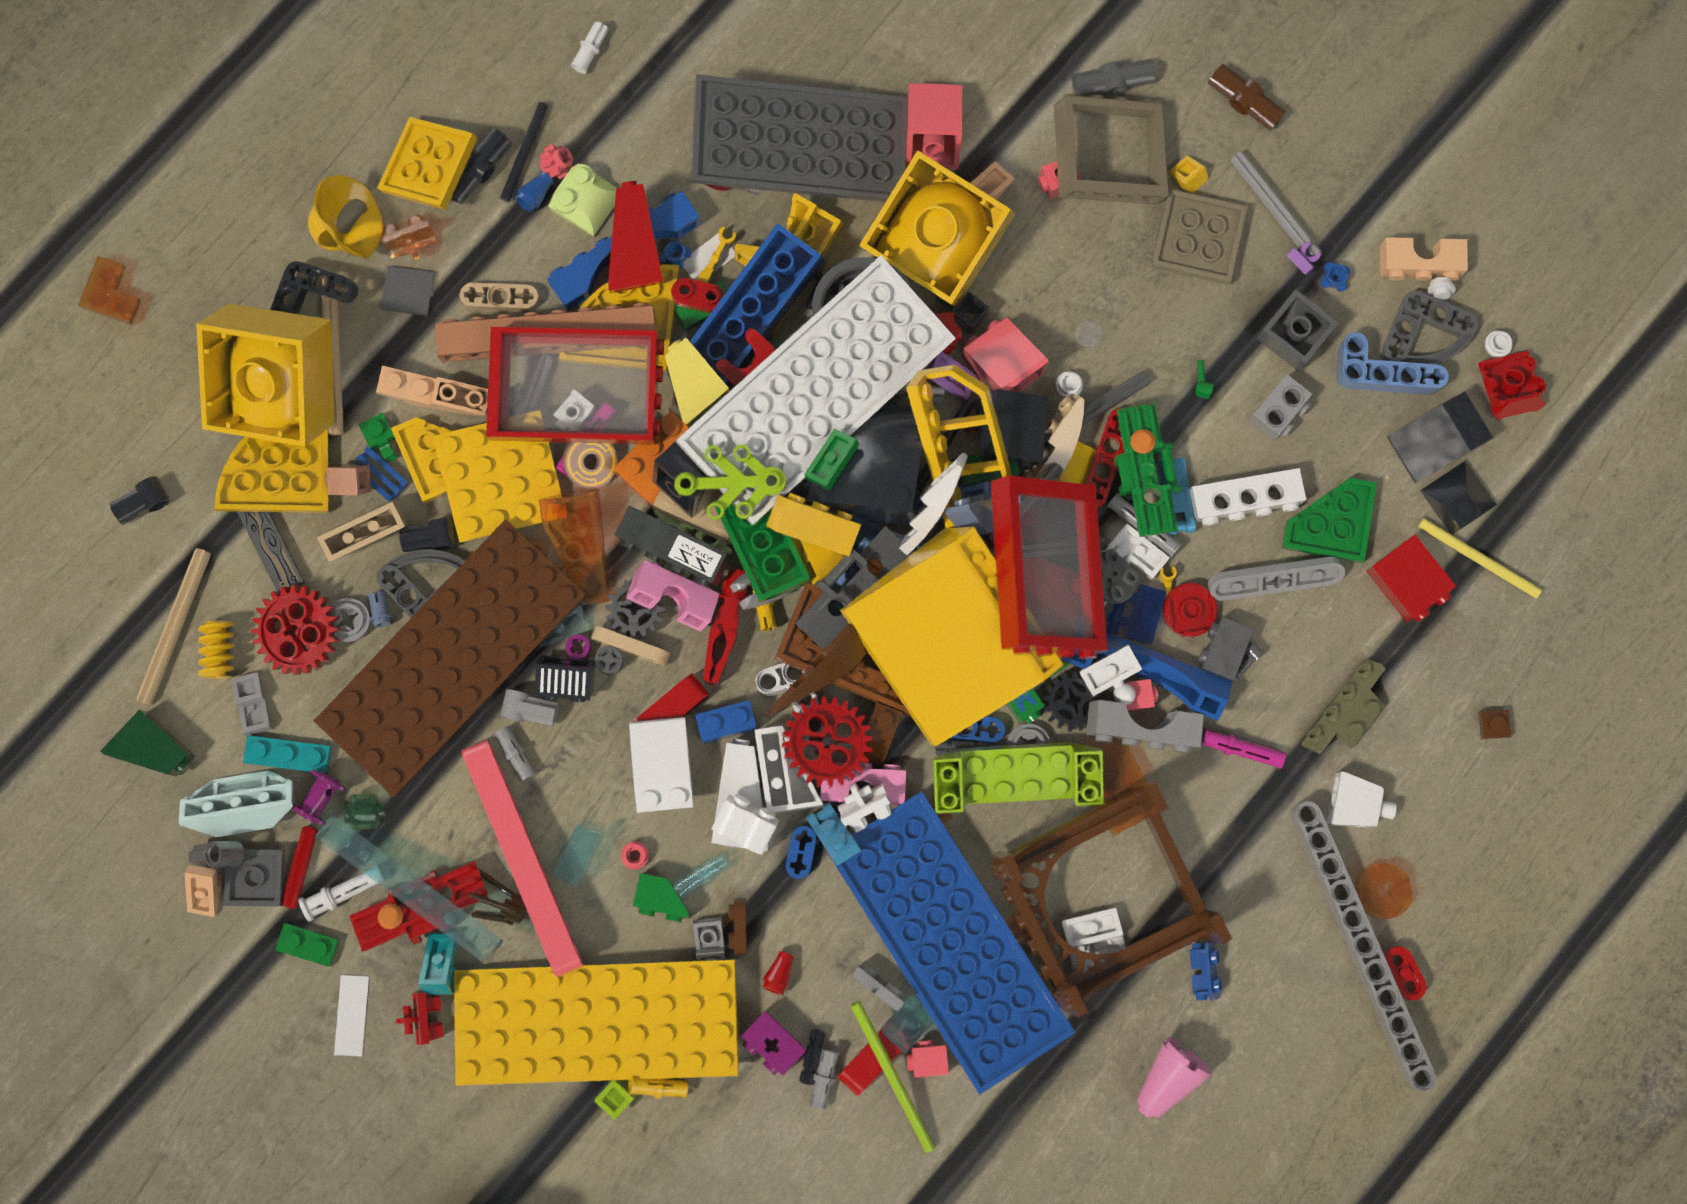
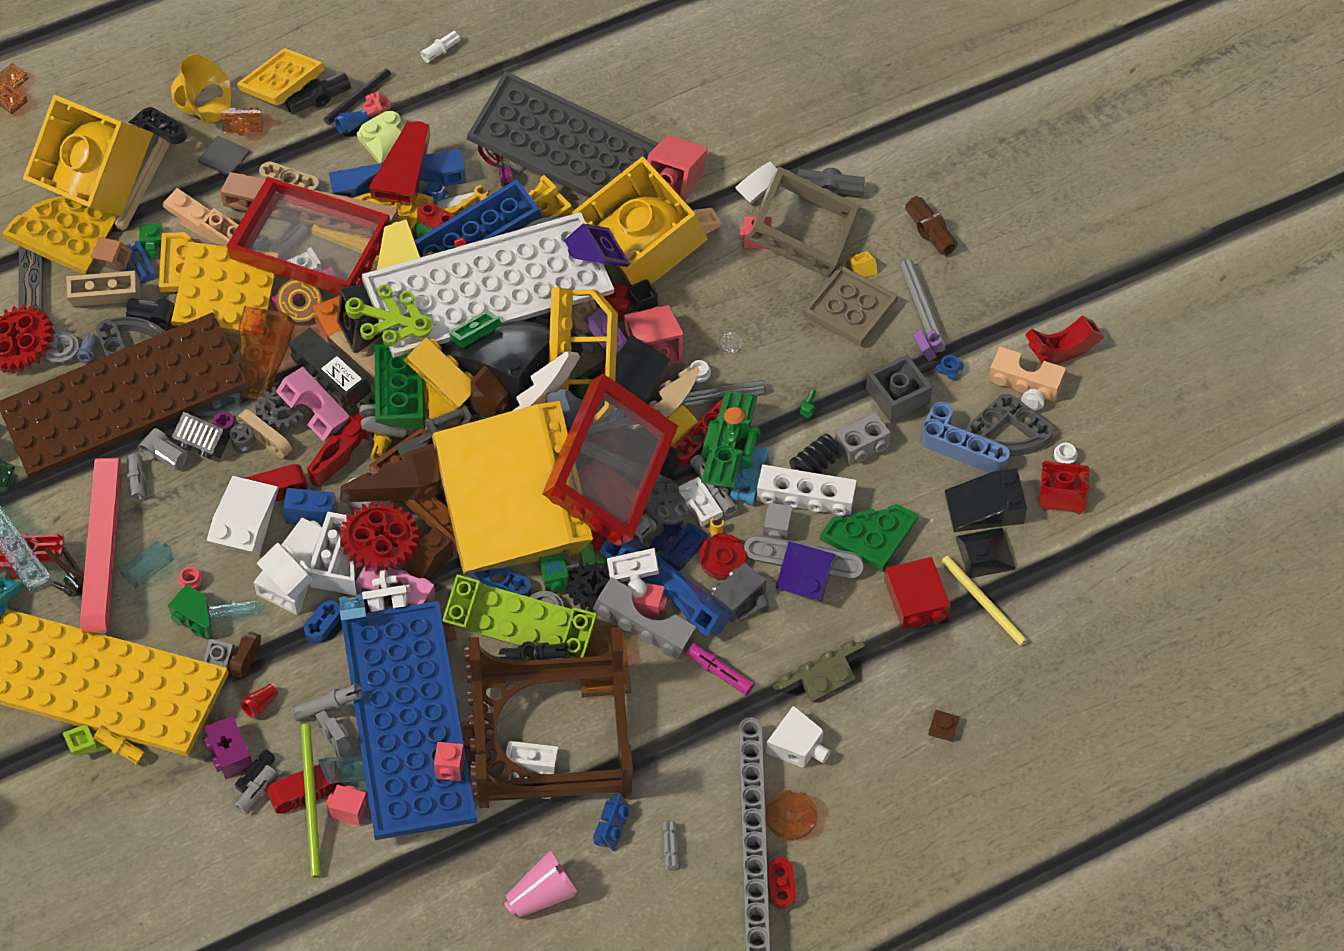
camera: 25 degrees right, 25 degrees down
(745, 202) = (505, 175): none -> magenta bush
(865, 952) = (336, 698): none -> light grey pin
(878, 530) = (488, 394): none -> reddish brown slope
(922, 301) = (595, 245): none -> dark purple slope
(1025, 988) = (449, 761): none -> coral brick
(1035, 107) = (756, 183): none -> white slope
(1059, 810) = (542, 651): none -> black pin
(1232, 549) = (778, 521): none -> light grey brick
(1241, 450) = (817, 455): none -> black piece
(1275, 972) = (670, 845): none -> light grey axle
(1289, 602) = (805, 571): none -> dark purple slope
(1451, 200) = (1065, 344): none -> red arch

